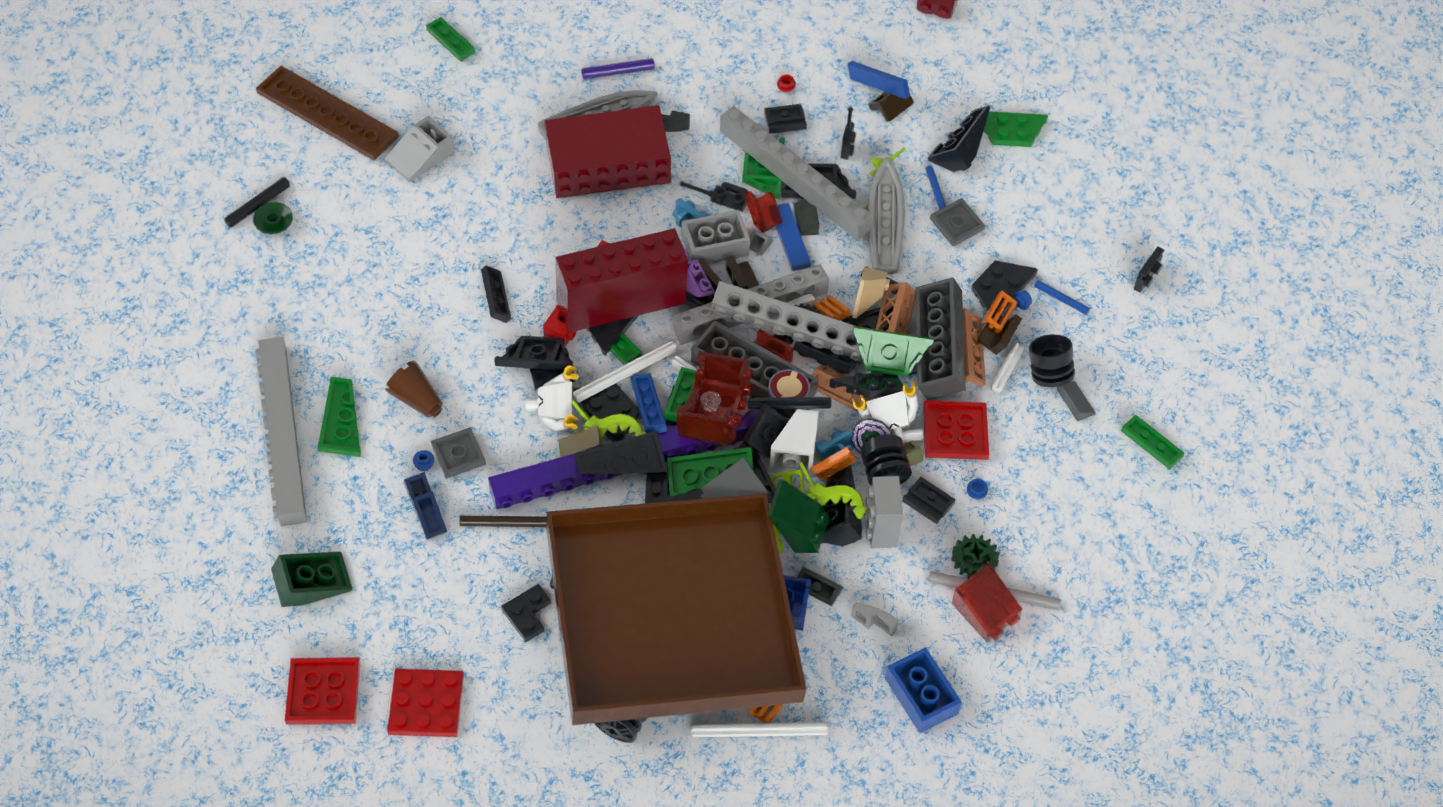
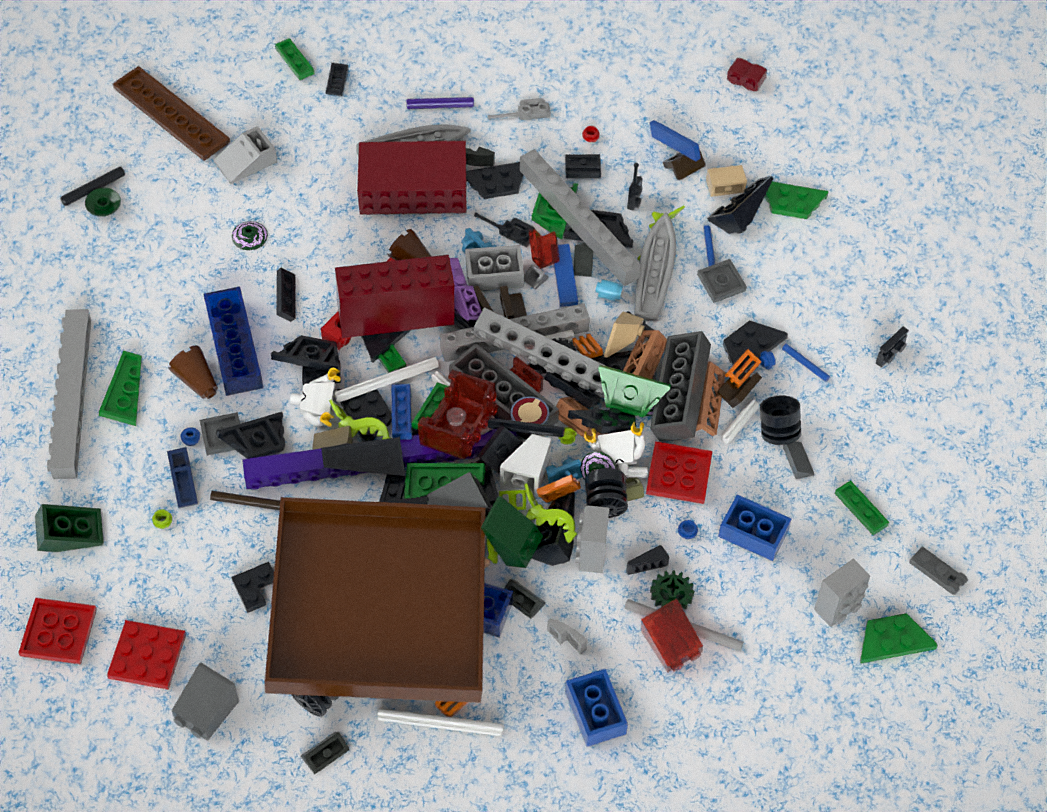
camera: 10 degrees right, 0 degrees up
(411, 548) = (162, 514): none -> lime plate
(441, 235) = (249, 235): none -> dish
(450, 351) = (233, 341): none -> clear blue brick
(497, 451) = (256, 437): none -> black wing
(501, 43) = (338, 68): none -> black slope
(503, 744) = (205, 702): none -> dark grey slope
(620, 227) = (408, 247): none -> reddish brown cone
(642, 779) = (325, 752): none -> pearl dark grey slope
(697, 144) = (496, 180): none -> black wing
(713, 67) = (527, 112): none -> light grey piece
(833, 410) = (569, 436): none -> lime plate
(841, 246) = (608, 290): none -> medium azure brick
(928, 500) = (640, 533): black plate -> none
(939, 116) = (726, 180): none -> tan brick
(946, 526) = (649, 560): none -> black slope
(1048, 477) = (754, 527): none -> blue brick
(1155, 533) = (842, 593): none -> light grey brick
(1214, 573) = (894, 638): none -> green wing
(1244, 497) = (938, 570): none -> dark grey plate

